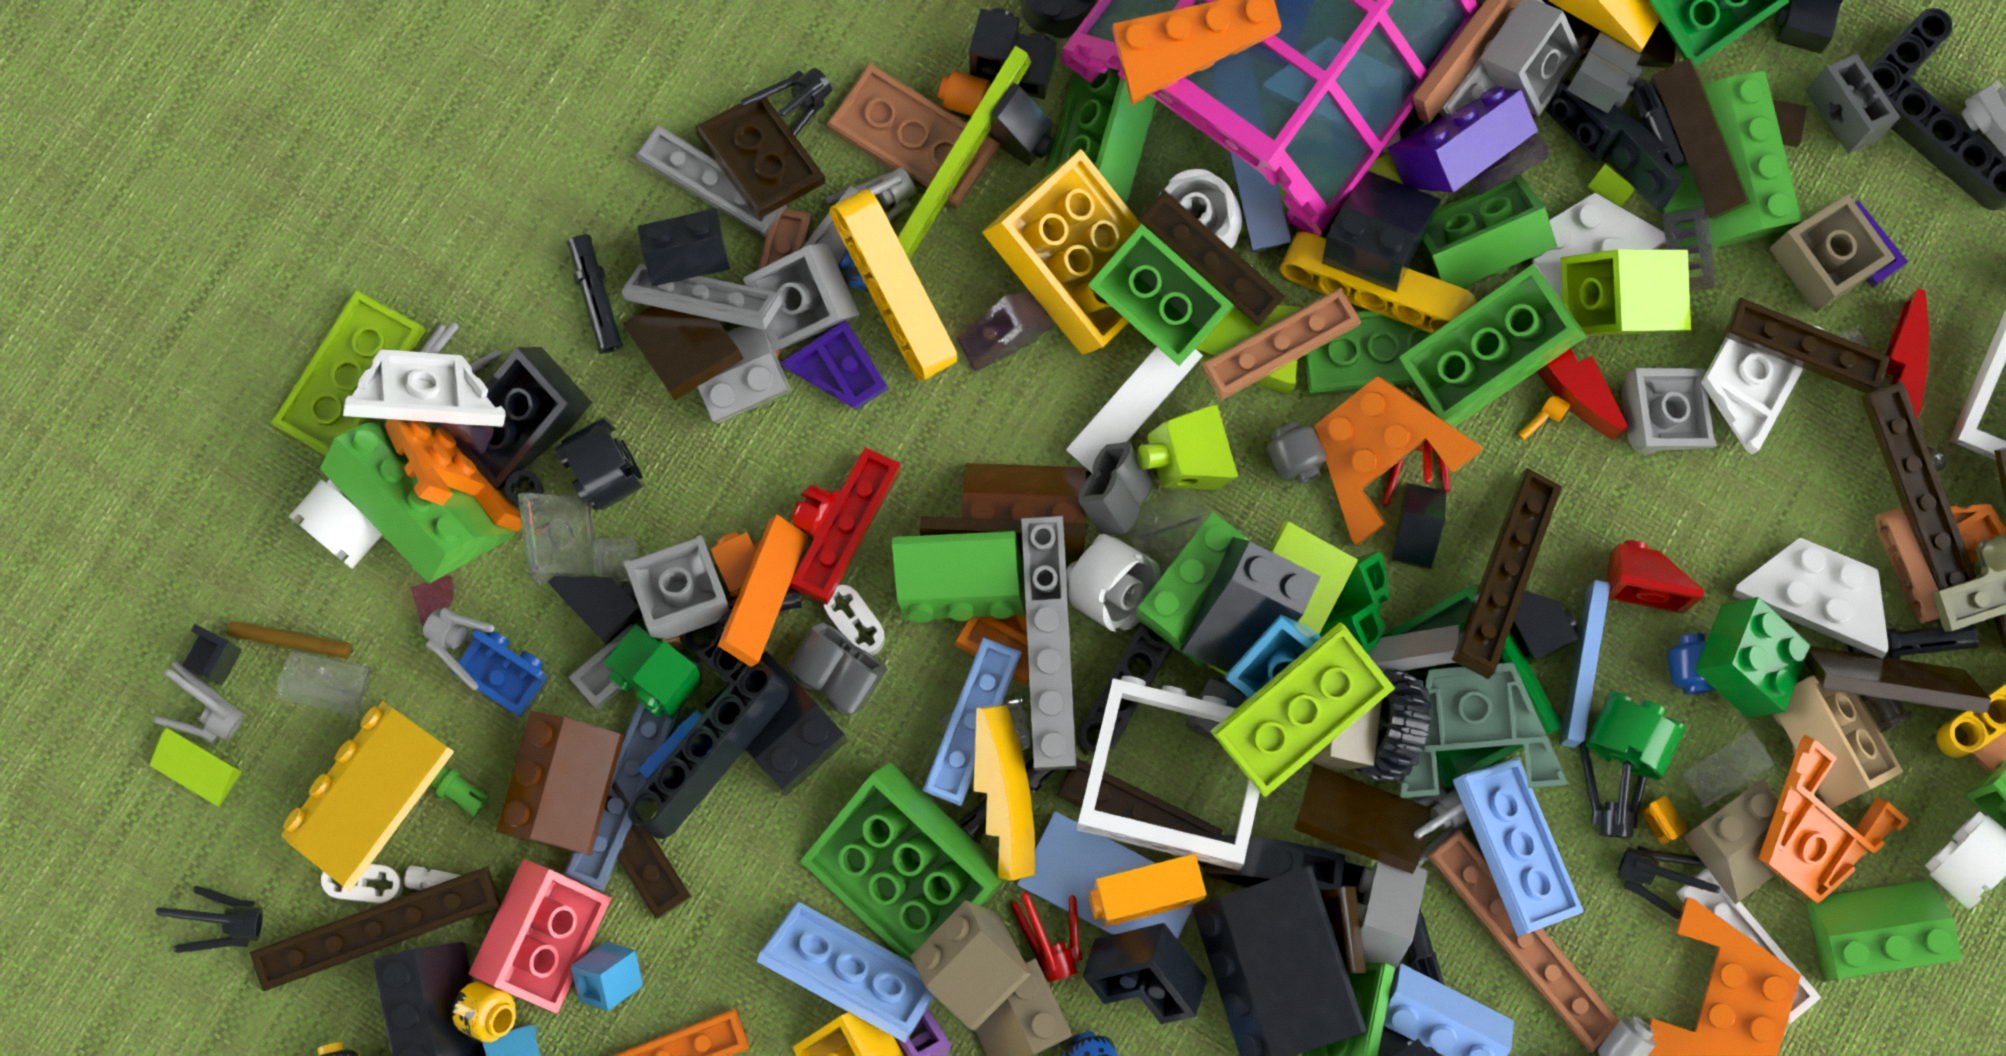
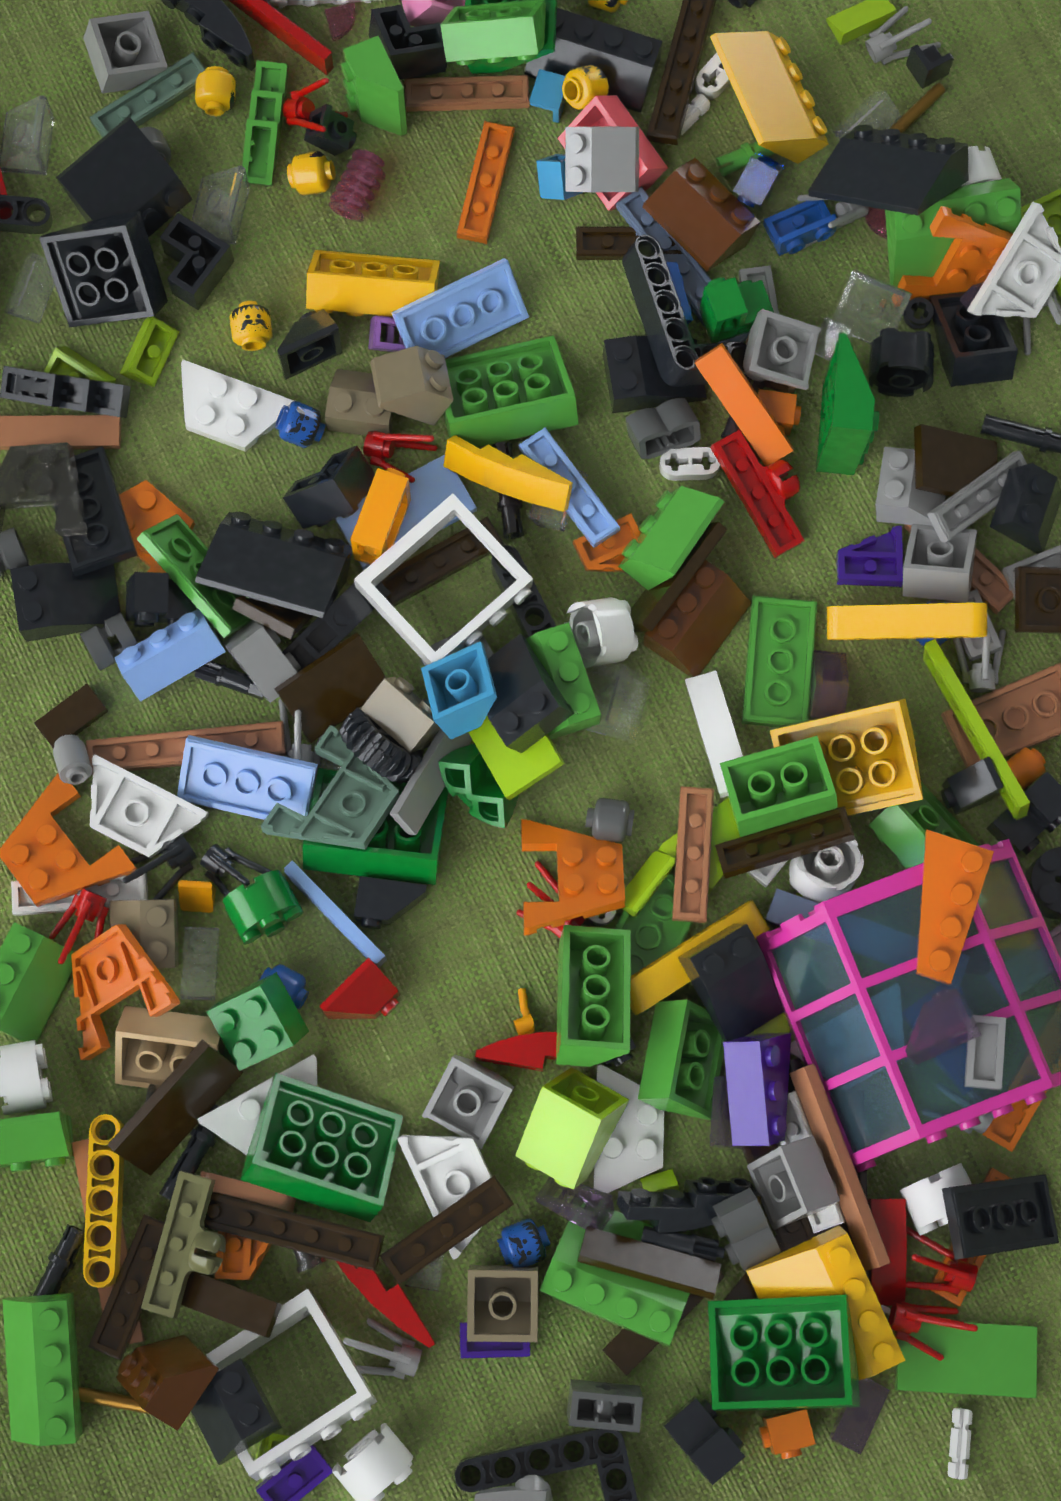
camera: 120 degrees right, 0 degrees up
(392, 596) = (892, 170): none -> black slope
(482, 742) = (758, 179): none -> clear blue brick
(566, 931) = (601, 159): none -> light grey slope
(599, 603) = (810, 304): black slope -> none
(708, 476) = (845, 413): none -> green slope
(1010, 396) = (779, 661): none -> bright green tile
(1048, 644) = (581, 555): light grey slope -> none
(1115, 489) = (664, 677): dark grey brick -> none
(1190, 452) = (659, 746): lime torso -> none
(1302, 709) = (425, 675): lime tile -> none
(1334, 375) = (647, 881): none -> lime slope
(1419, 526) = (506, 873): black slope -> none
(1507, 574) = (429, 895): dark brown tile -> none
(1627, 941) = (137, 810): none -> white wing
(1760, 917) = (88, 906): none -> red plant
(1762, 272) = (523, 1243): none -> blue head
(1819, 514) = (323, 1148): none -> green slope
(1948, 315) = (403, 1358): none -> light grey plant

